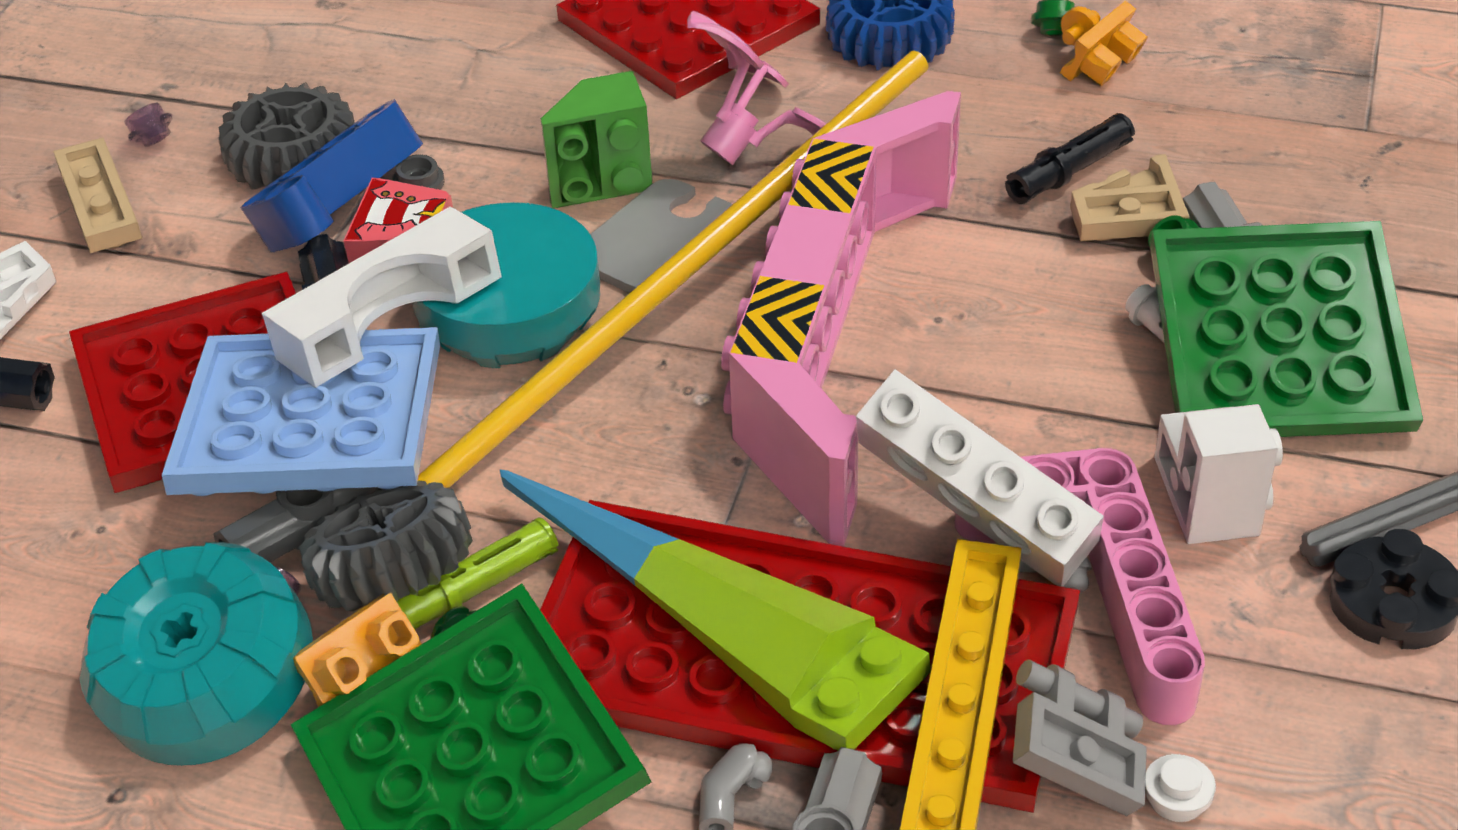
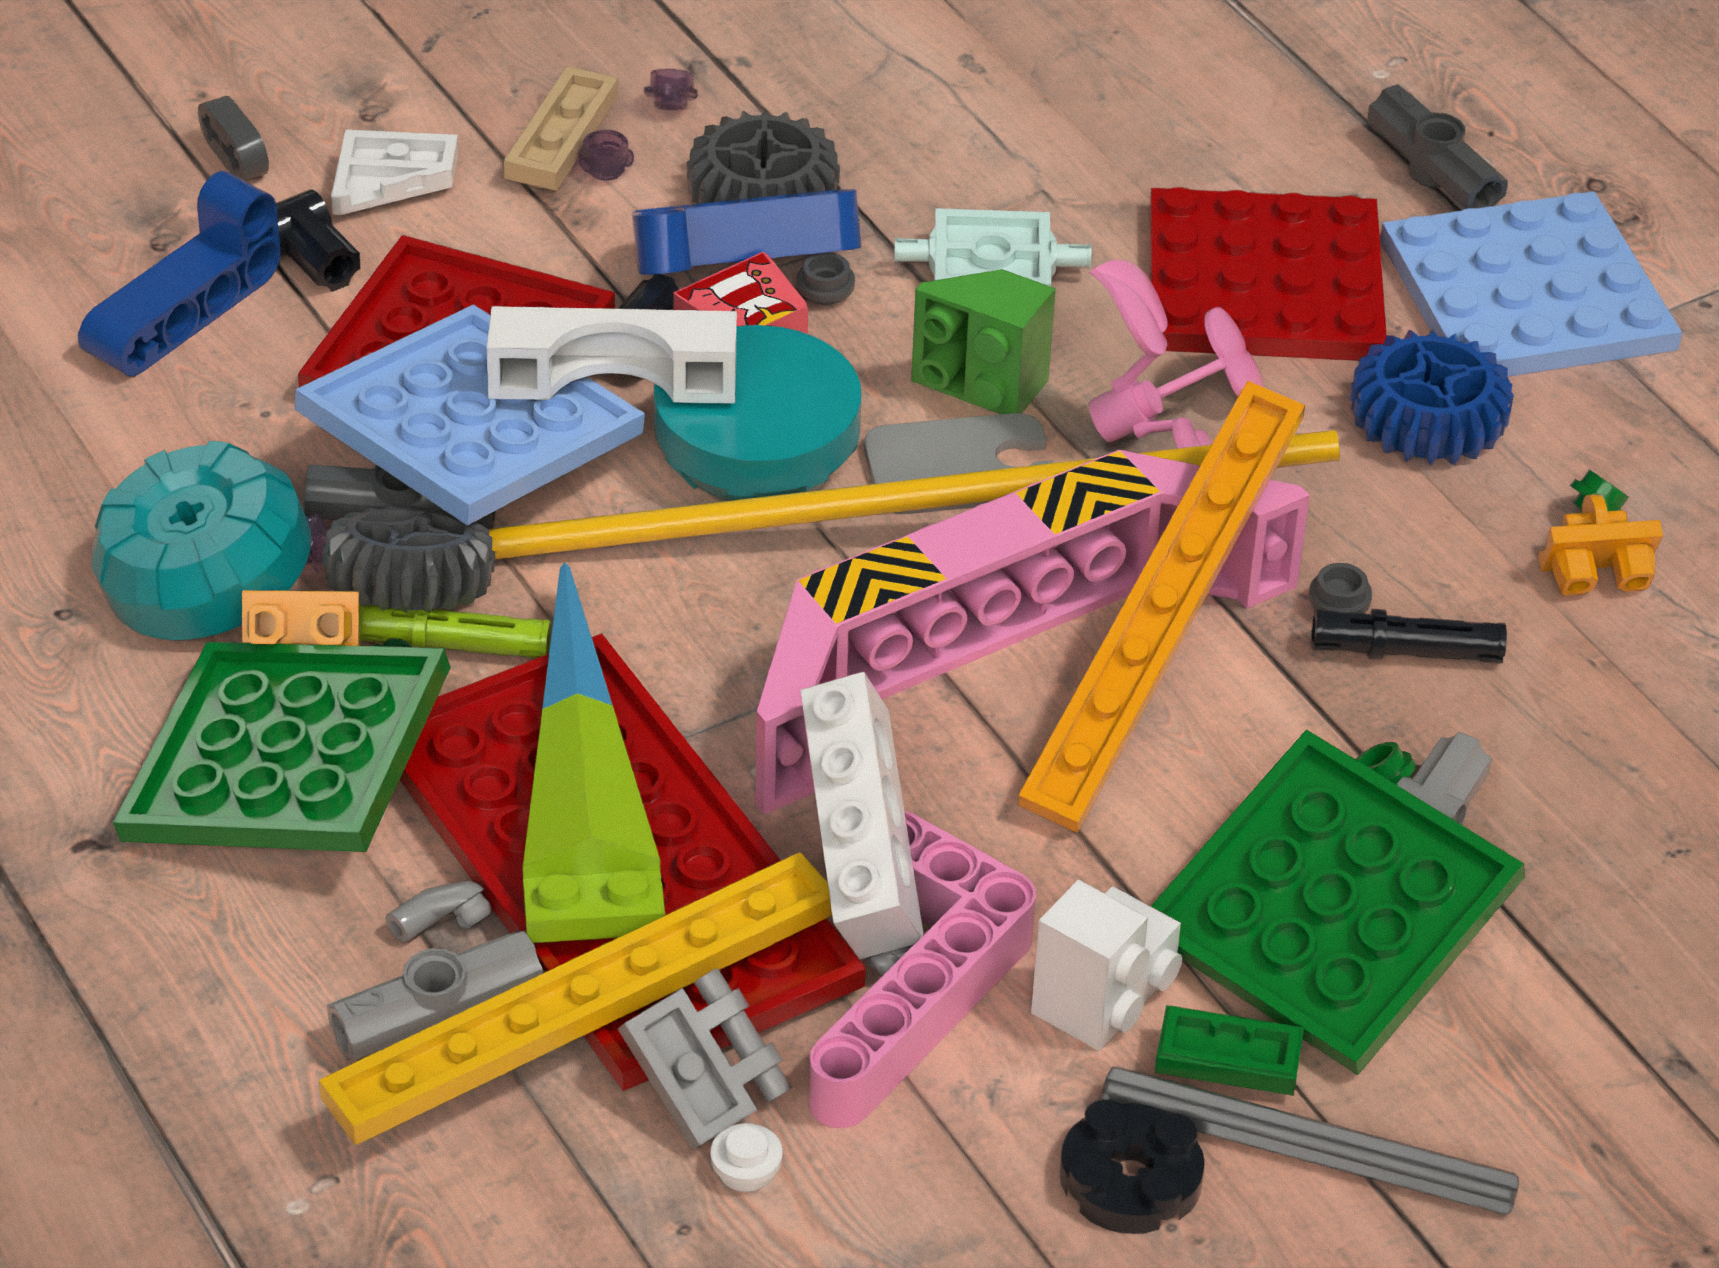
camera: 40 degrees right, 0 degrees up
(152, 192) = (605, 154): none -> plate
(507, 98) = (990, 241): none -> light aqua plate
(963, 224) = (1161, 607): none -> light orange plate
(995, 158) = (1341, 589): none -> dark grey plate
(1126, 203) = (1396, 708): tan wing -> none
(1343, 470) = (1229, 1050): none -> green plate

